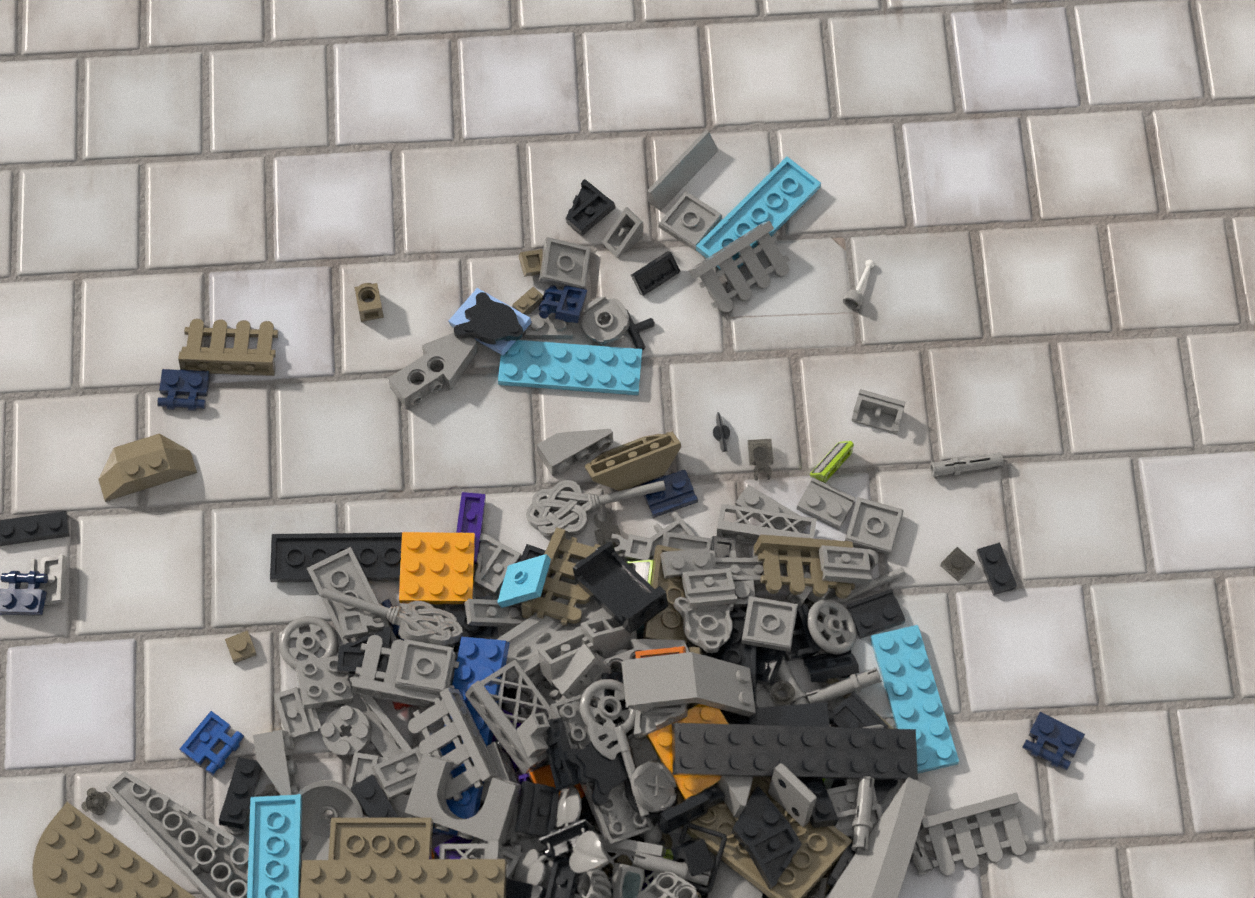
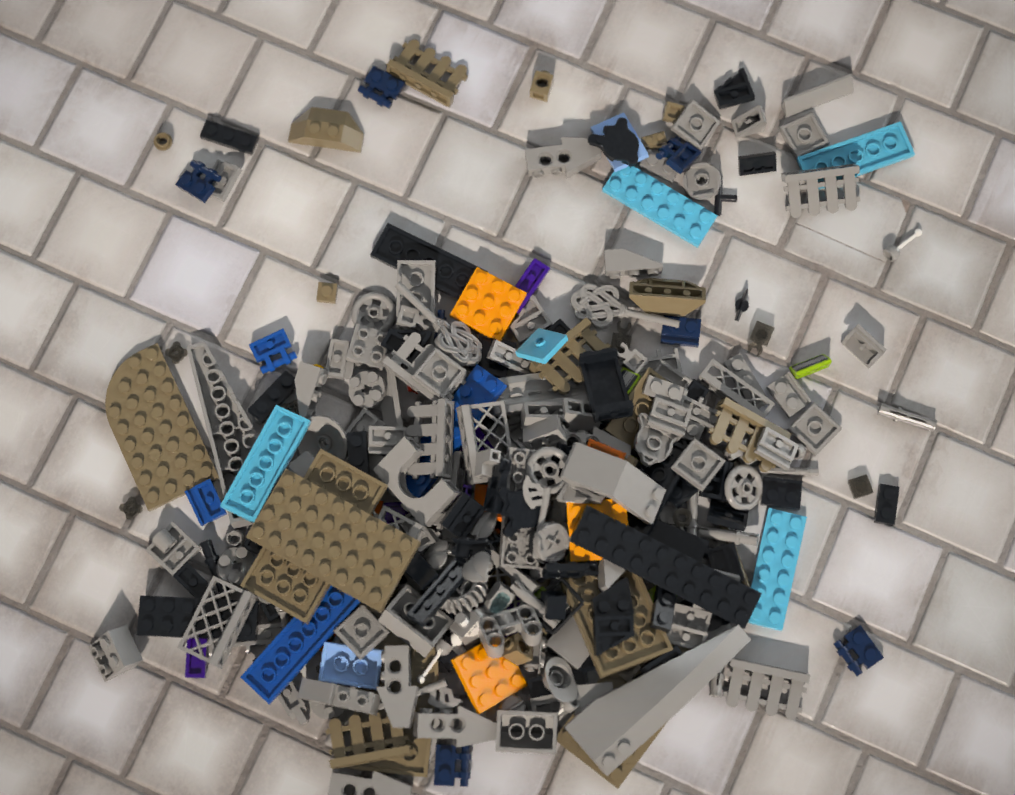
camera: 30 degrees right, 10 degrees up
(792, 794) = (646, 597): light grey tile -> none
(862, 823) = (690, 635): light grey pin -> none

